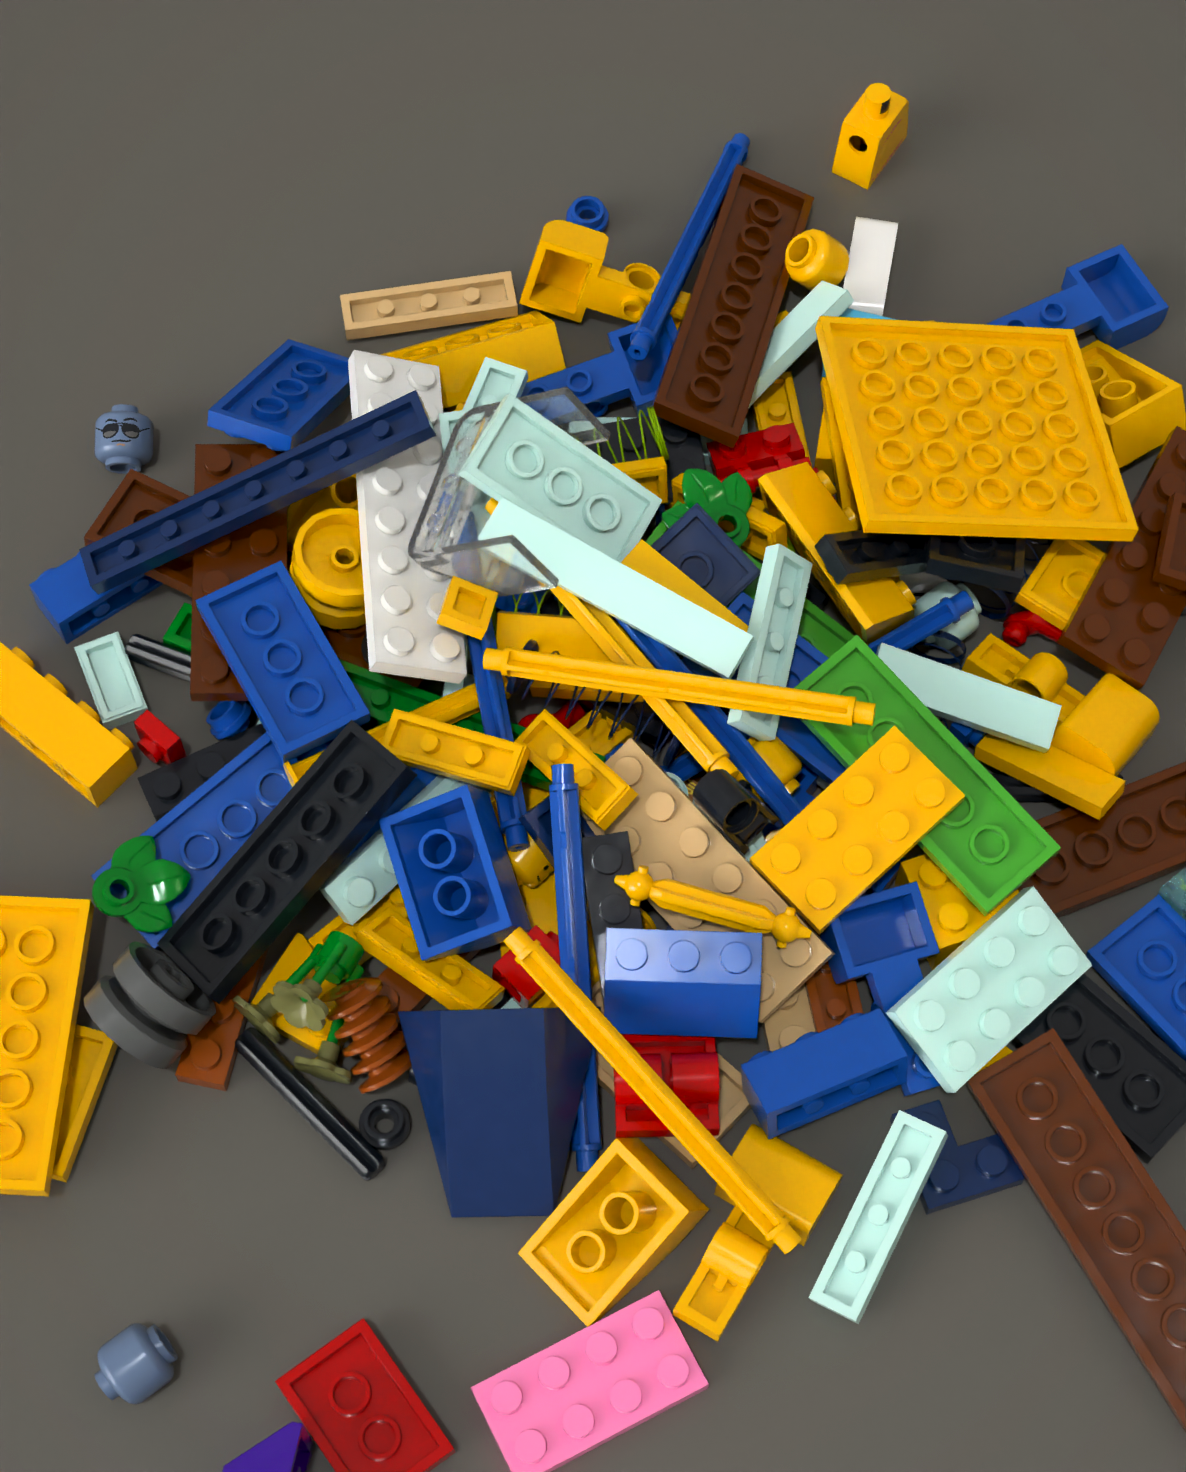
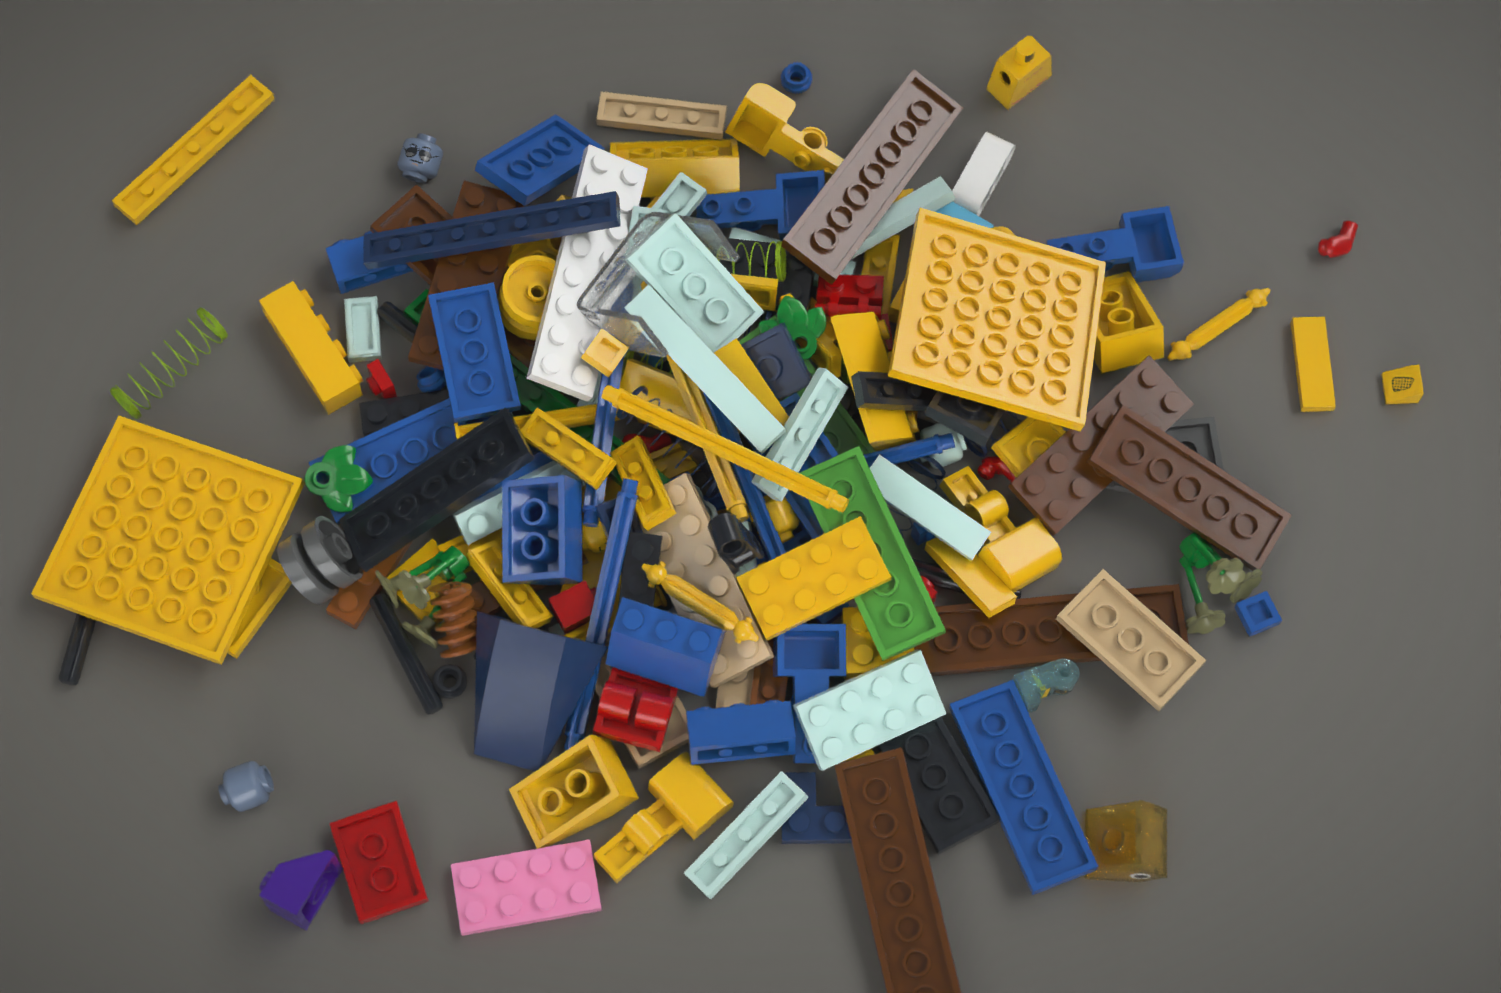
camera: 15 degrees right, 5 degrees up
(652, 1090) = (621, 710): yellow piece -> none
(686, 252) = (852, 127): blue piece -> none
(815, 258) = (943, 158): yellow head -> none

